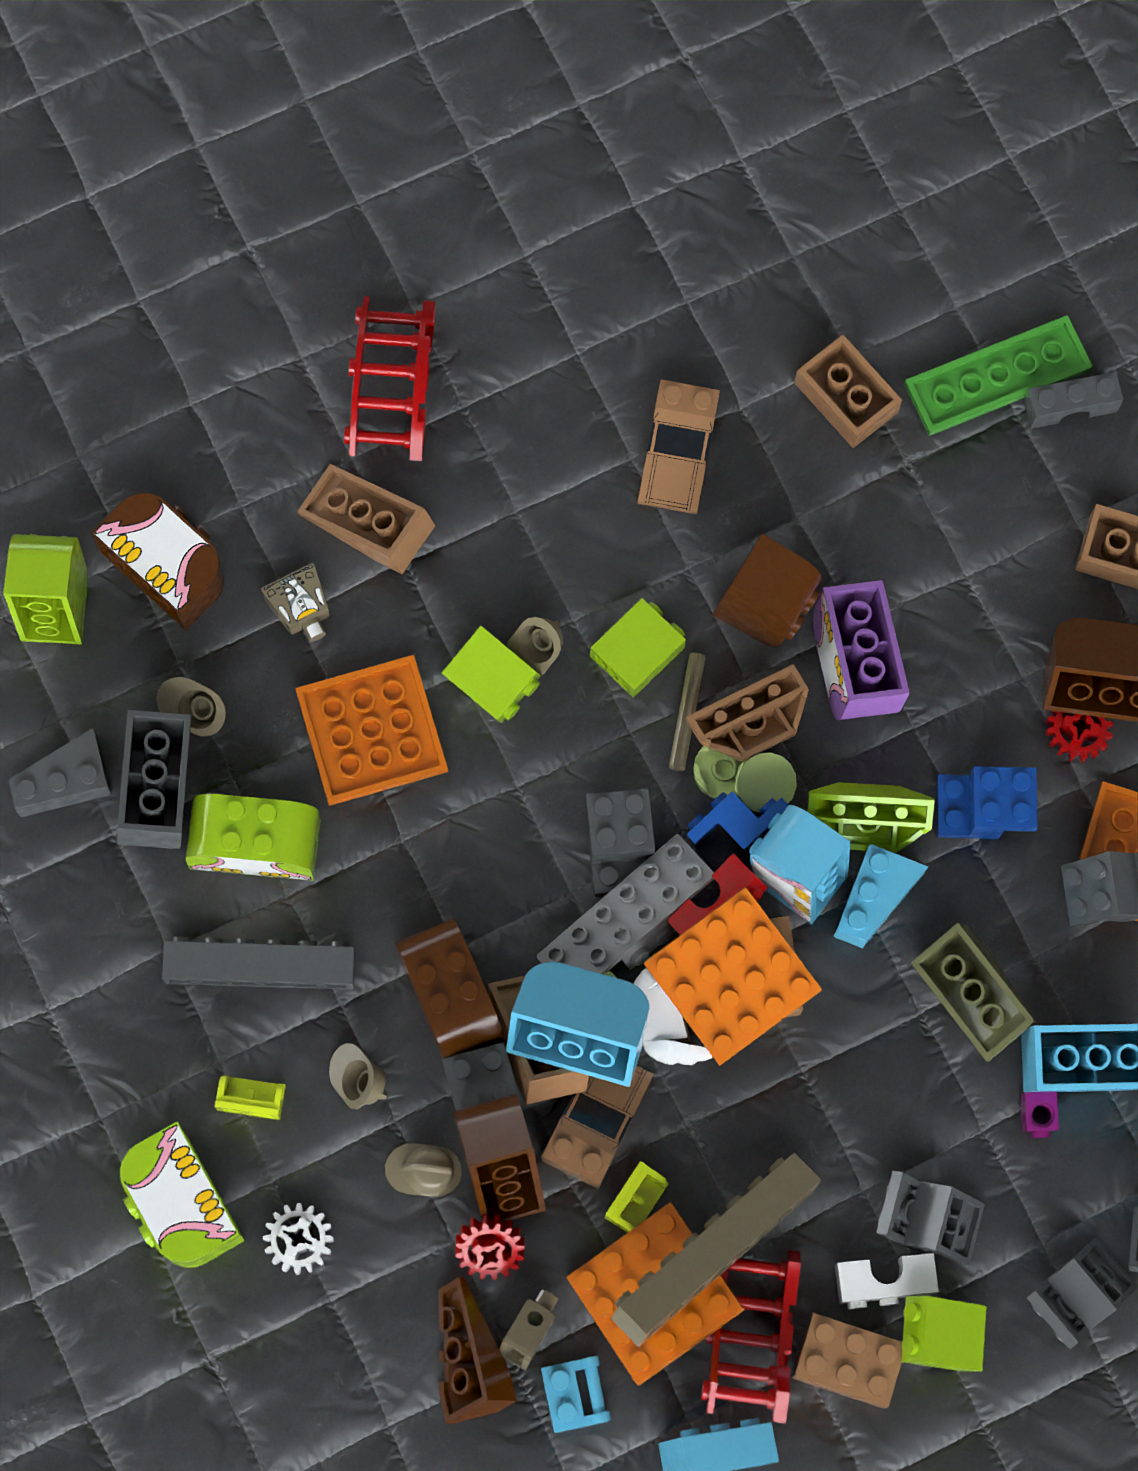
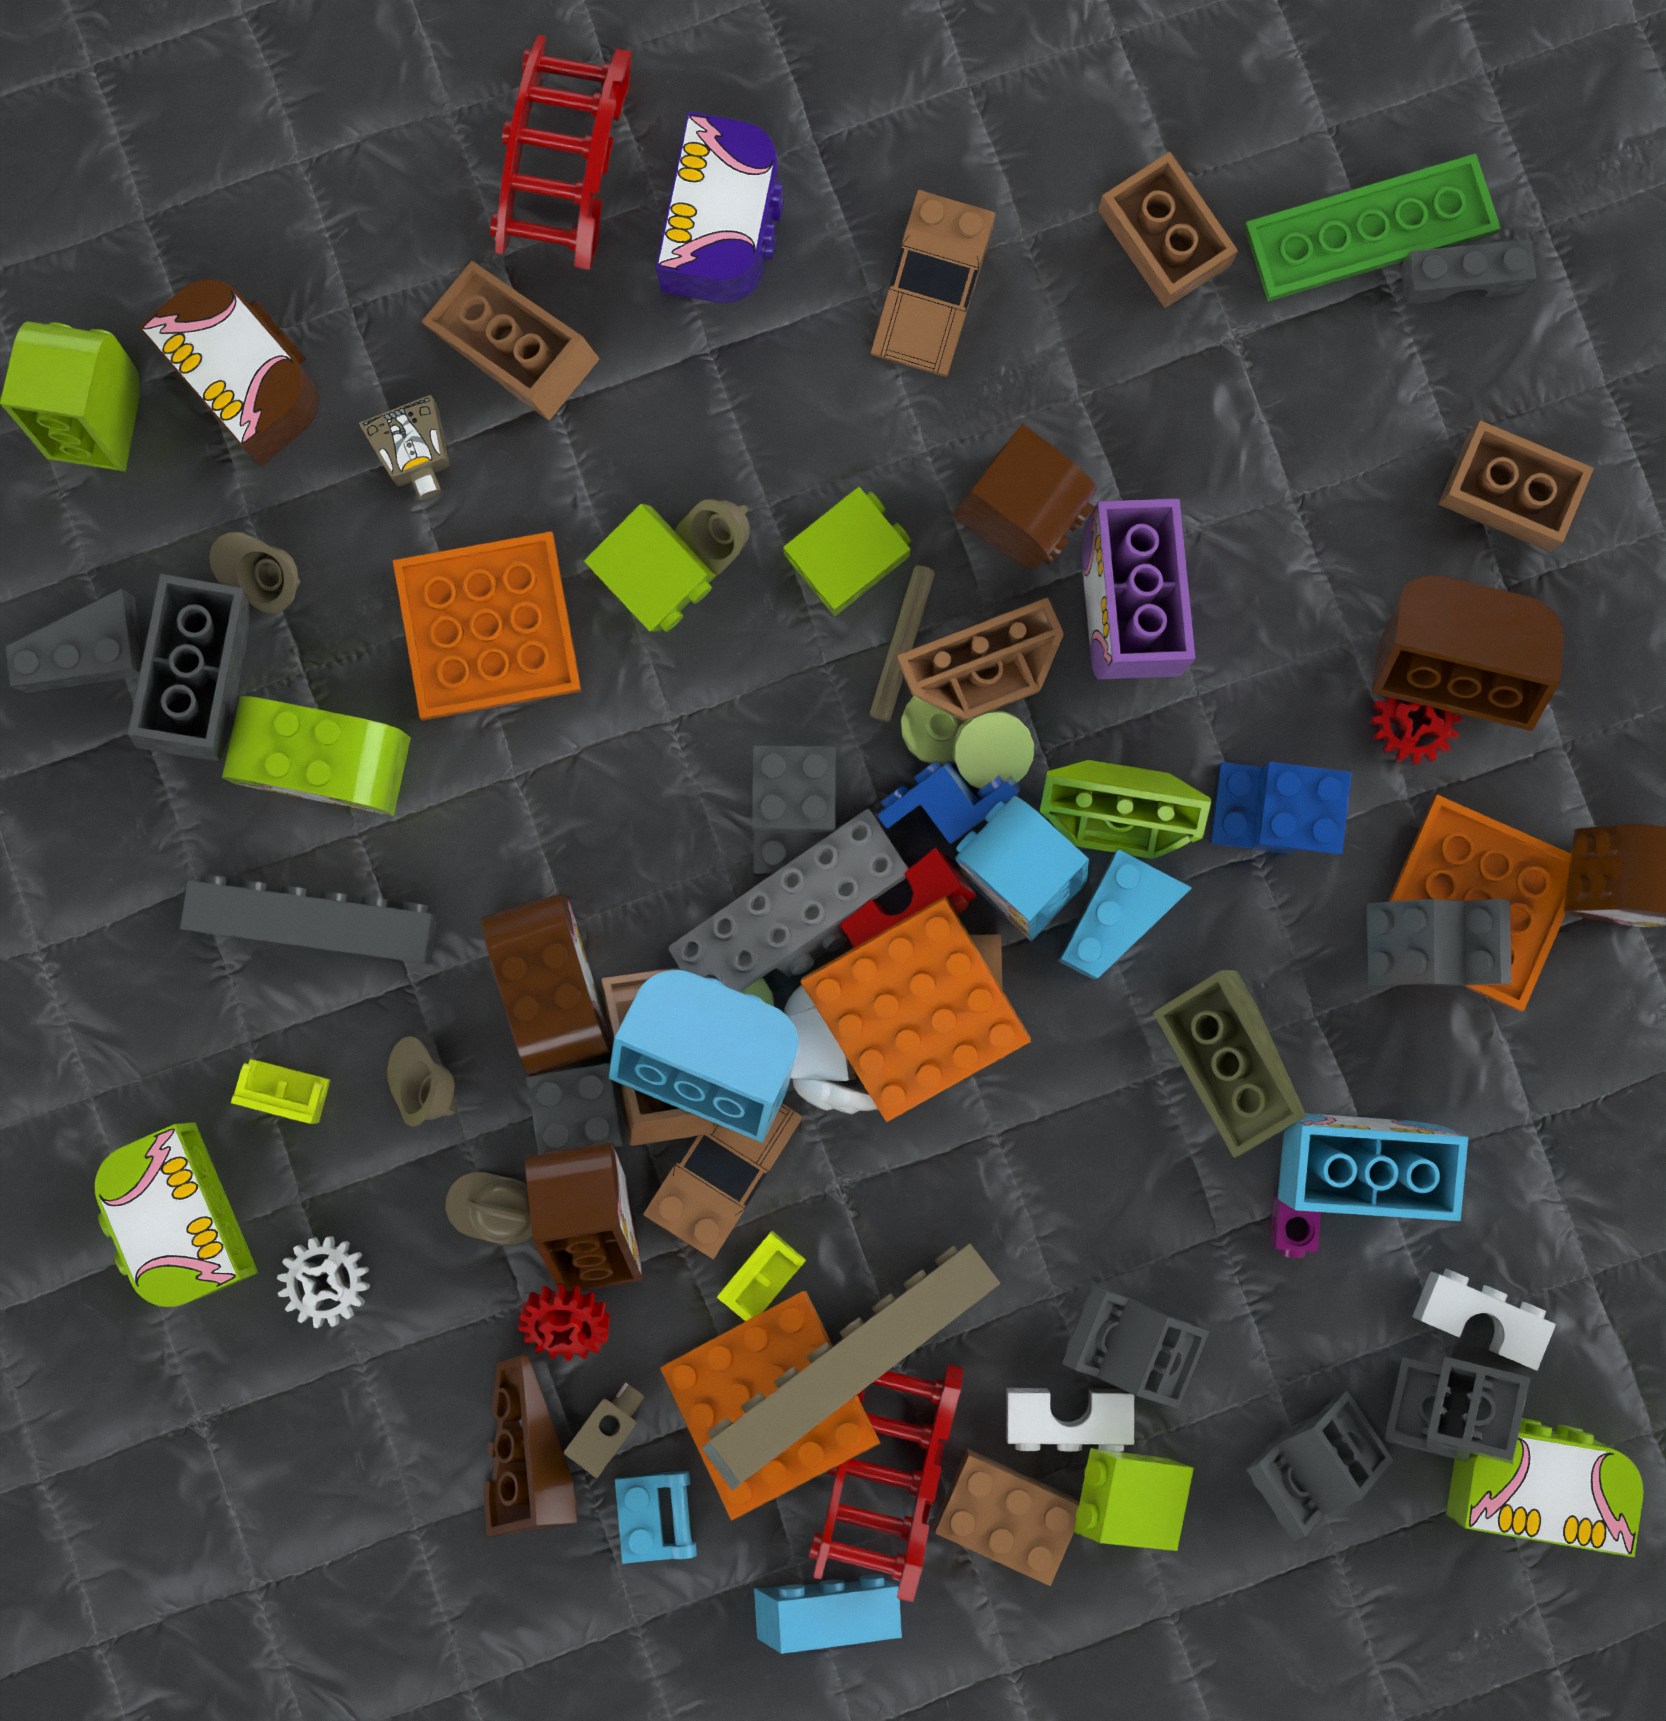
camera: 15 degrees right, 10 degrees up
(516, 409) = (720, 211): none -> brick

